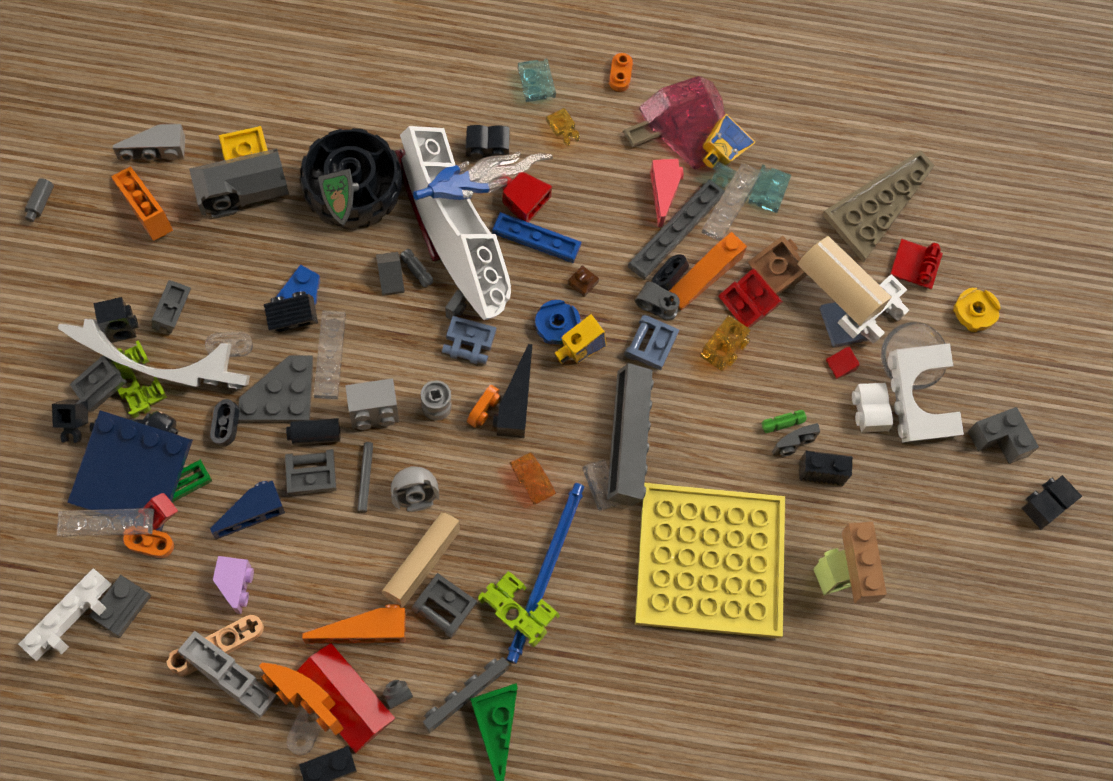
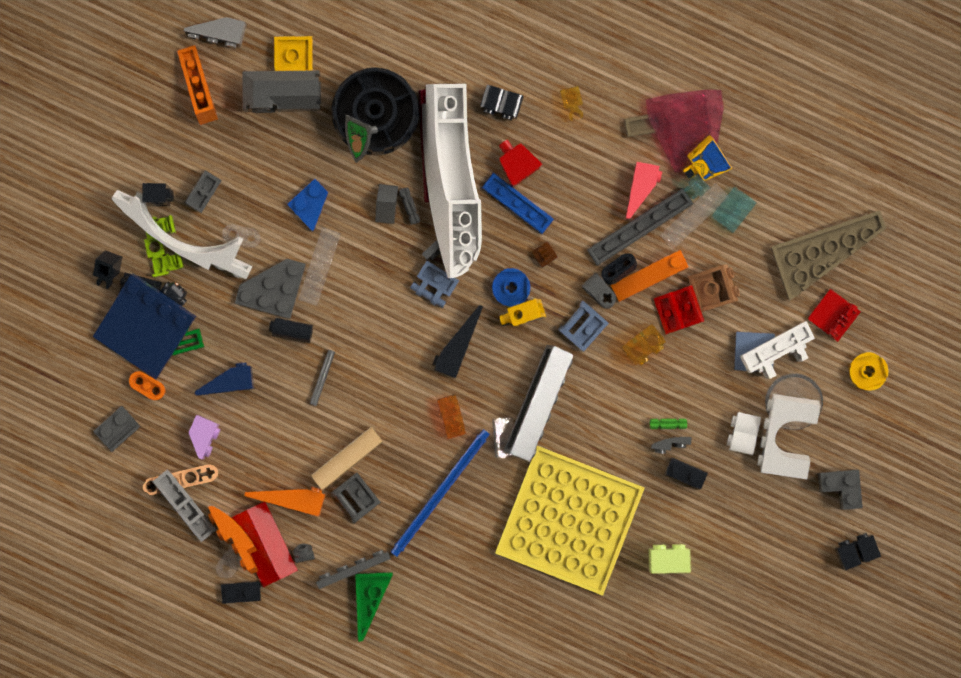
camera: 25 degrees right, 20 degrees up
(38, 199) = (114, 59): dark grey cylinder -> none
(64, 614) = (89, 416): white hinge -> none
(98, 382) = (133, 244): dark grey plate -> none
(105, 522) = (118, 363): clear plate -> none
(163, 509) = (159, 365): red slope -> none
(224, 424) = (223, 303): black plate -> none
(290, 312) = (296, 224): black brick -> none
(313, 478) = (281, 369): dark grey plate -> none
(372, 404) = (341, 323): light grey brick -> none
(414, 489) = (357, 400): light grey cylinder -> none
(436, 400) = (393, 331): light grey wheel -> none
(452, 186) = (478, 145): piece -> none
(479, 412) = (424, 352): orange plate -> none
(526, 625) = (412, 533): lime piece -> none
(536, 80) = (563, 49): clear light blue plate -> none
(620, 70) = (642, 58): orange plate -> none
(843, 362) = (735, 387): red slope -> none
(844, 281) = (756, 323): tan brick -> none
(863, 562) = (676, 566): medium nougat brick -> none

